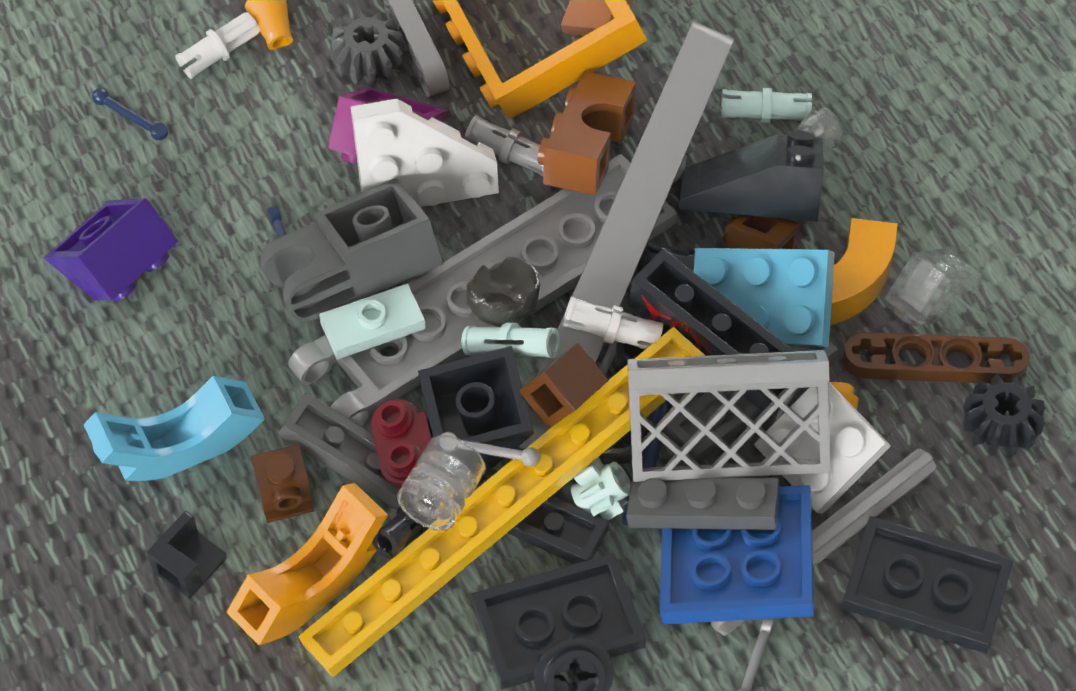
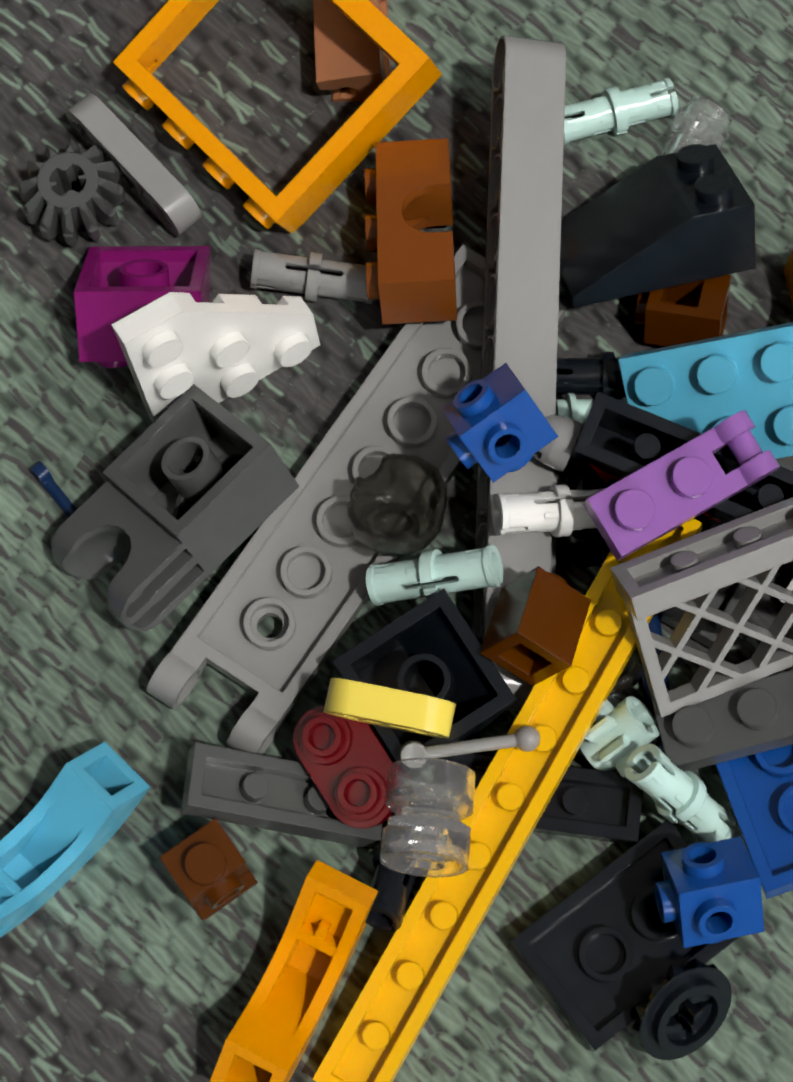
camera: 20 degrees left, 15 degrees up
(185, 556) = (123, 1014): black panel -> none
(372, 321) = (238, 600): light aqua plate -> none
(442, 403) = (389, 707): none -> light yellow beam
(590, 234) = (496, 424): none -> blue brick
(617, 594) = (710, 892): none -> blue brick
(621, 278) = (559, 450): none -> light grey hinge
(626, 536) = (679, 794): none -> light aqua pin
(696, 321) = (678, 486): none -> medium lavender plate

